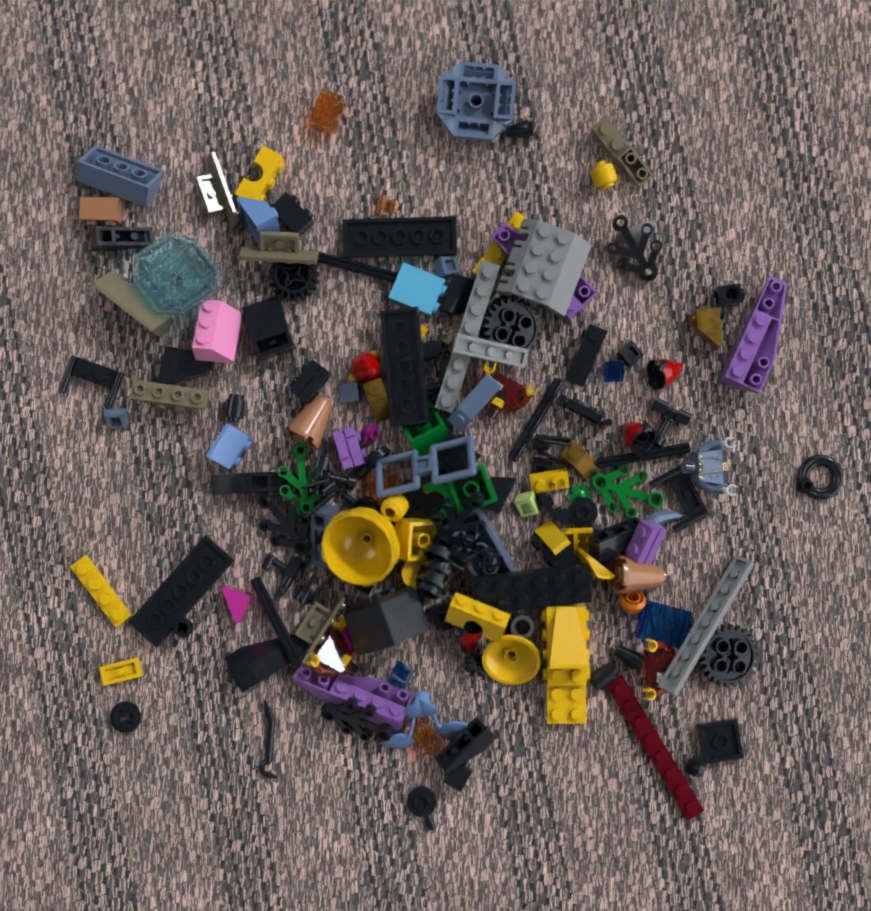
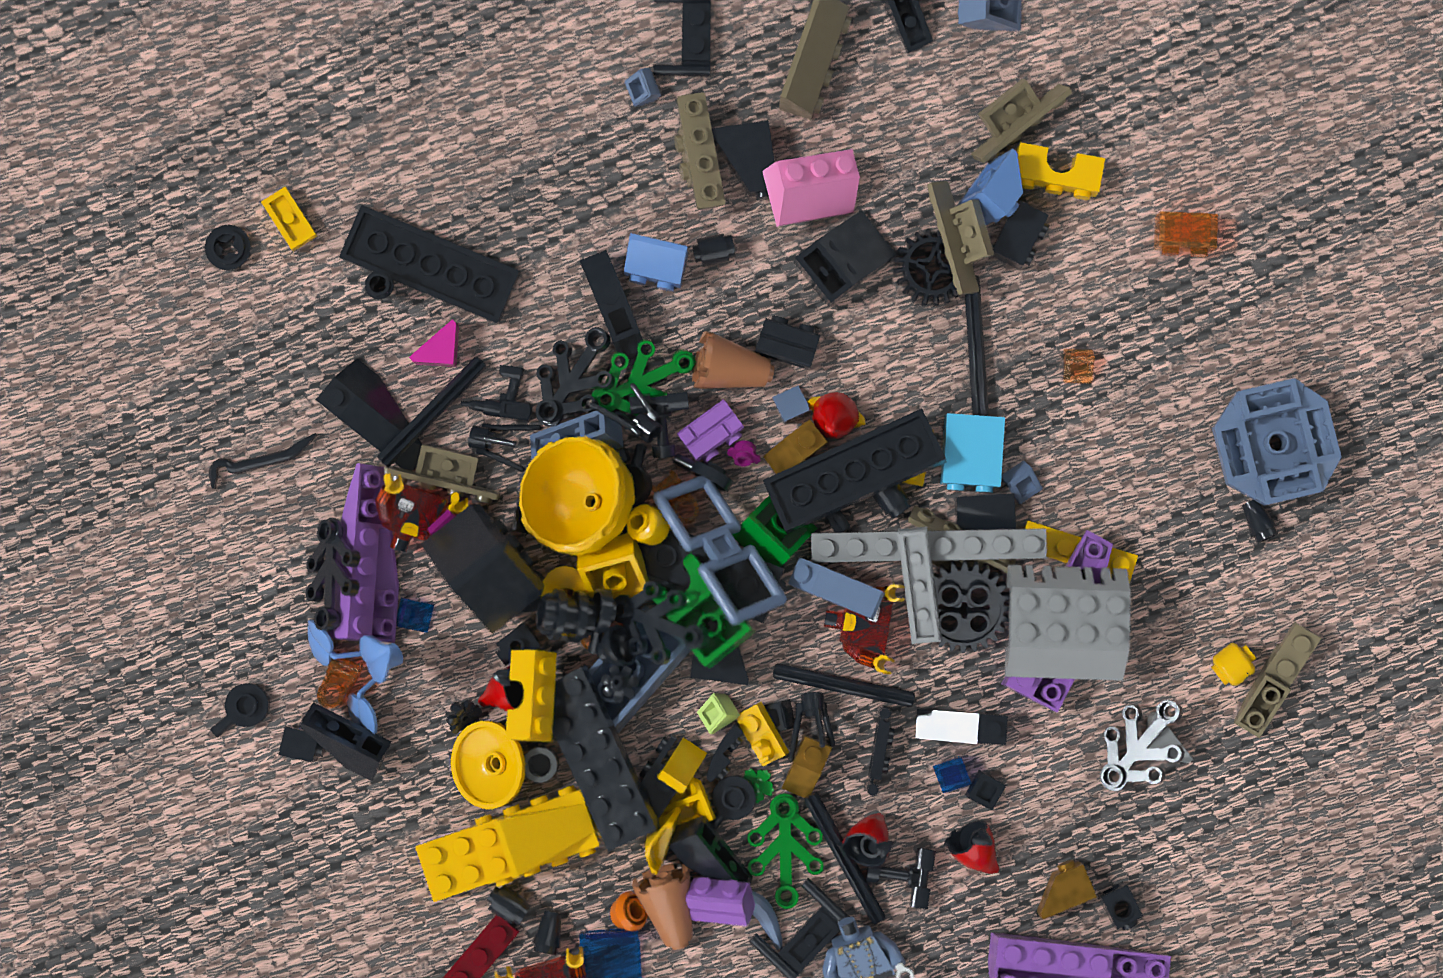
camera: 65 degrees right, 0 degrees up
(101, 591) = (392, 151): yellow plate -> none
(170, 258) = (897, 85): clear light blue piece -> none
(399, 237) = (1040, 399): black plate -> none

